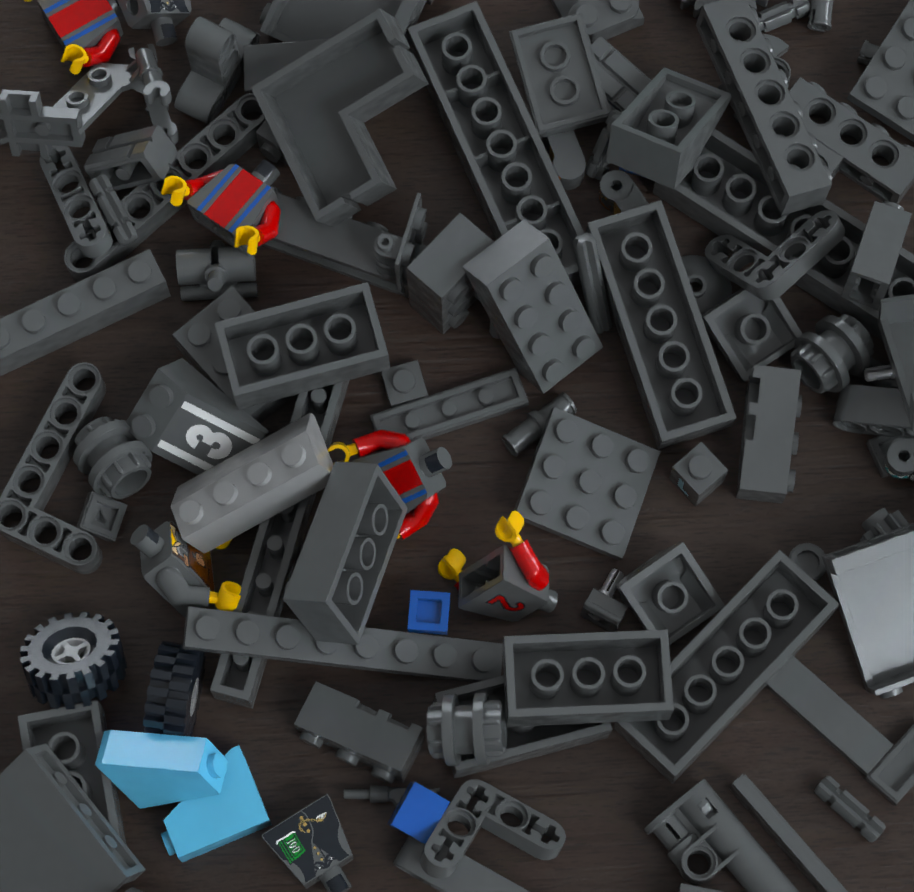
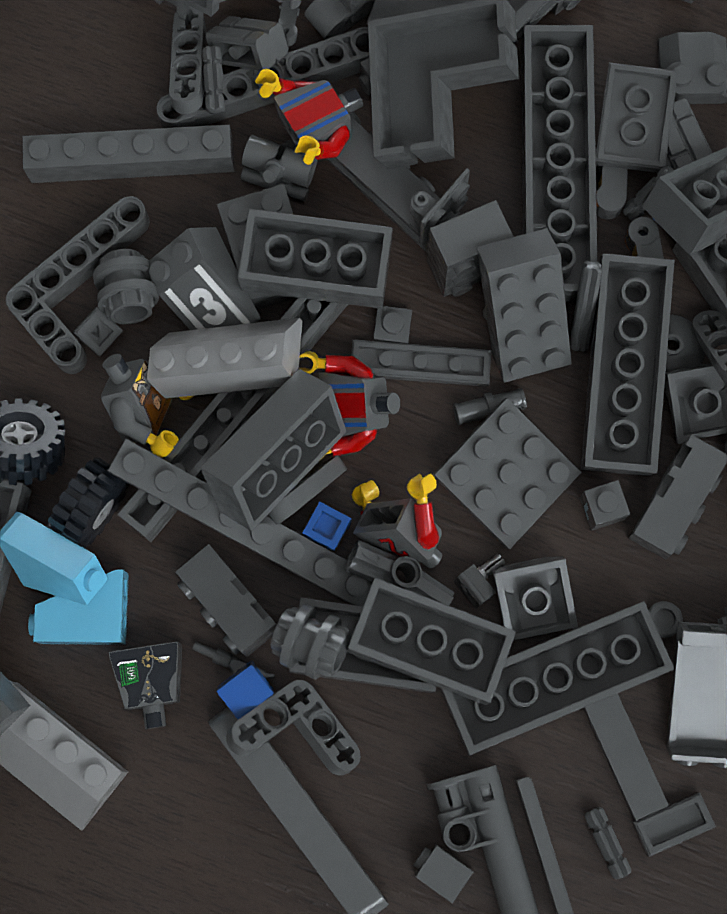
camera: 25 degrees right, 5 degrees up
(394, 581) = (308, 488): none -> dark grey beam
(488, 629) = (373, 563): none -> dark grey piece

